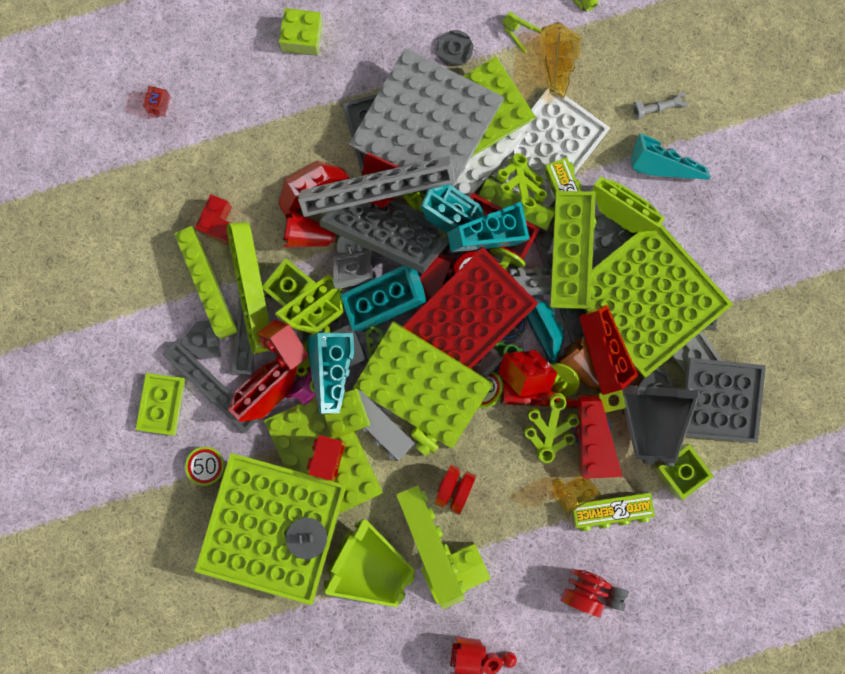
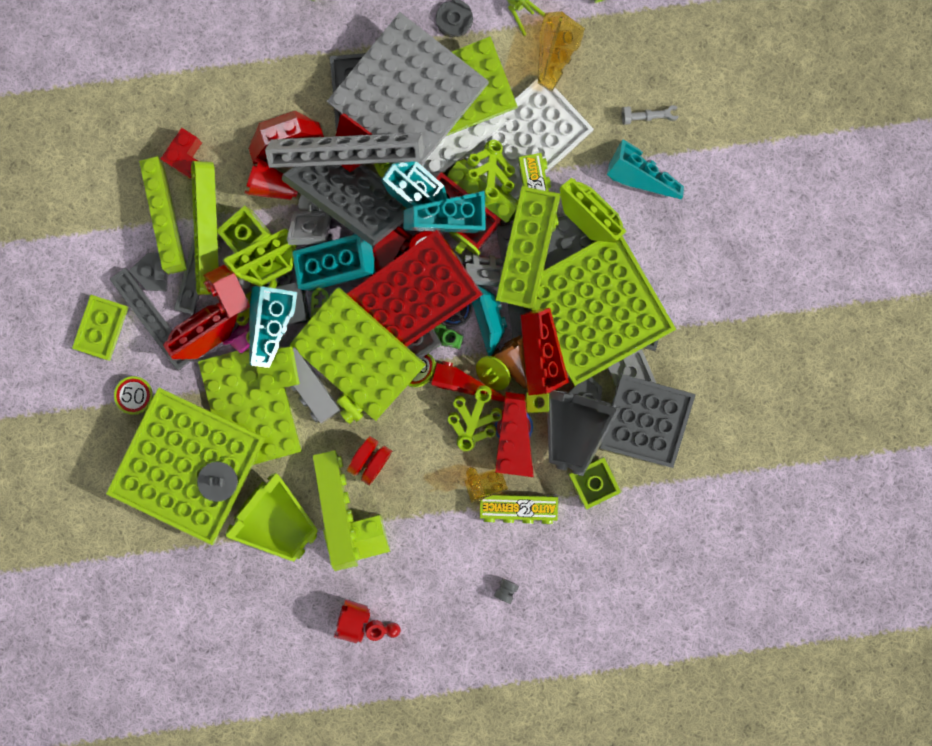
camera: 10 degrees right, 5 degrees up
(156, 101) = (143, 22): clear red brick -> none
(326, 457) = (250, 408): red brick -> none
(527, 372) = (460, 360): red brick -> none
(586, 592) = (477, 579): red wheel -> none

